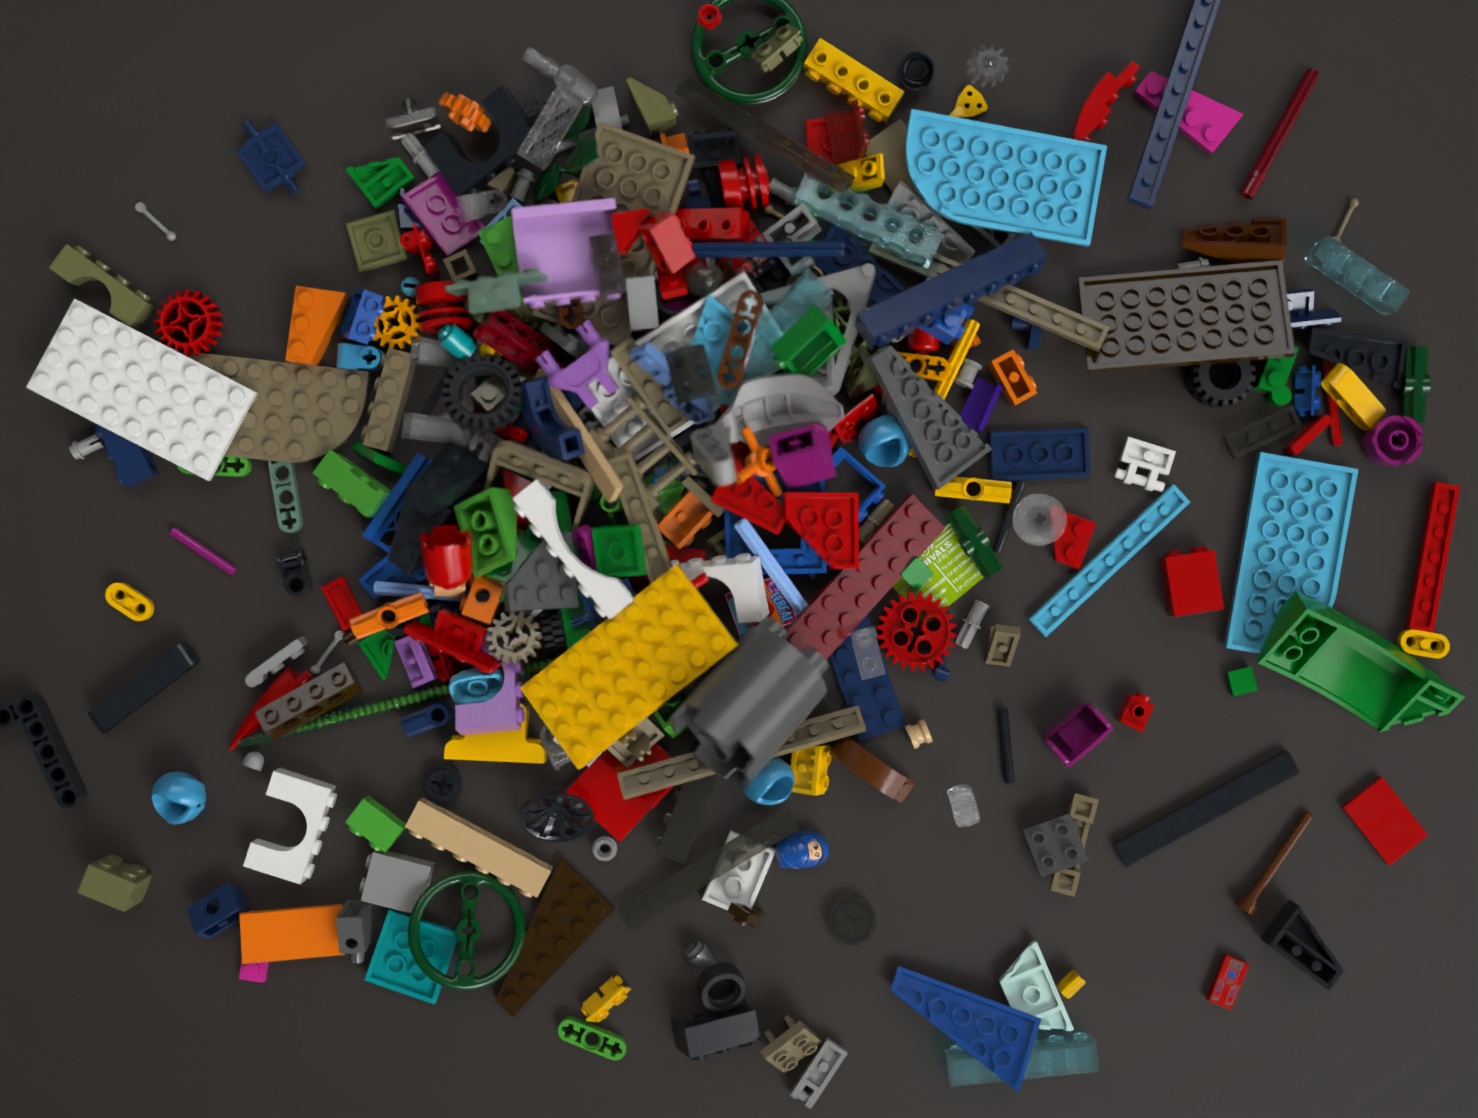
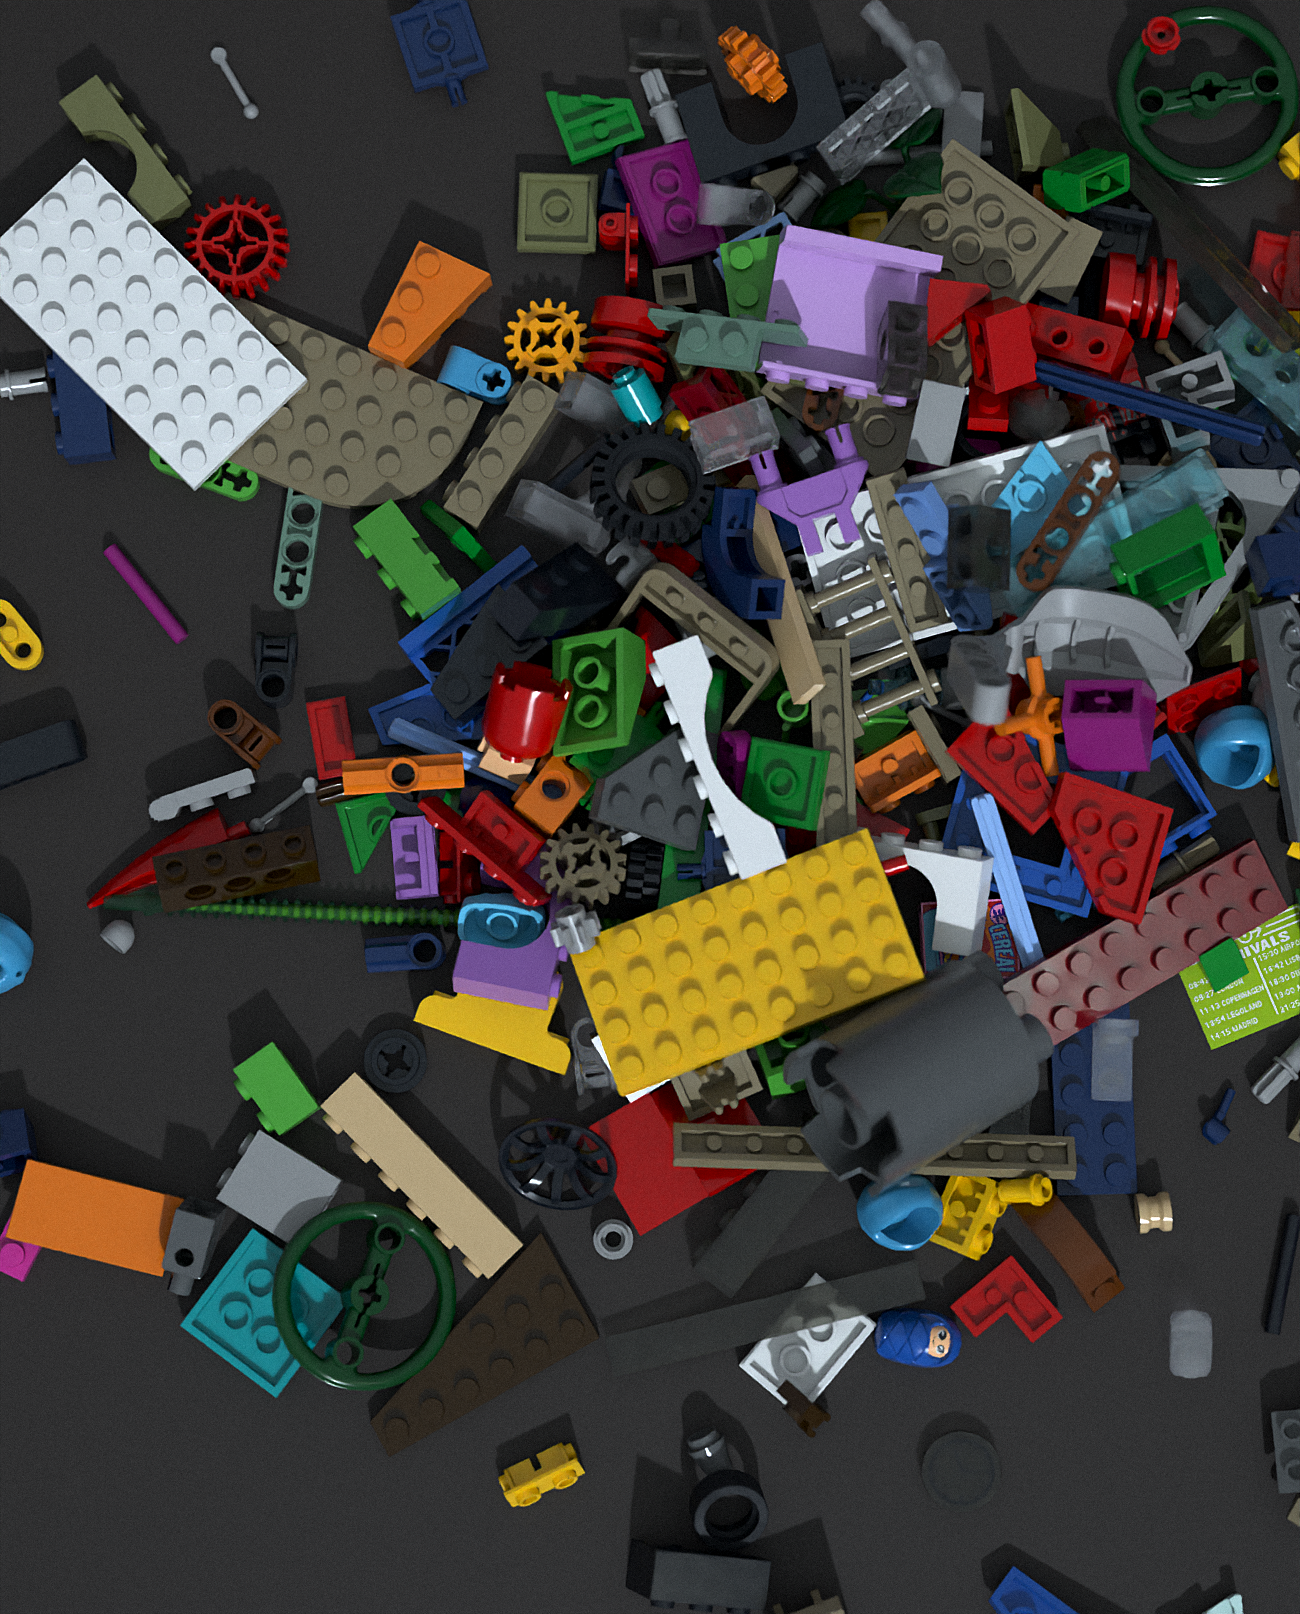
camera: 20 degrees right, 5 degrees down
(292, 618) = (244, 733): none -> reddish brown piece
(314, 800) = (193, 1024): white arch -> none
(361, 316) = (501, 316): blue plate -> none
(409, 292) = (582, 303): medium azure hinge -> none
(520, 678) = (575, 928): none -> light grey gear
(521, 348) = (733, 434): none -> clear hinge
(606, 1052) = (530, 1542): bright green beam -> none
(690, 122) = (1086, 180): none -> green brick
(696, 181) = (1069, 270): none -> dark tan tile
(785, 40) = (1265, 103): olive hinge -> none
(843, 745) = (1034, 1189): none -> yellow pin
(845, 807) = (1007, 1291): none -> red plate
(937, 639) = (1224, 1075): red gear -> none

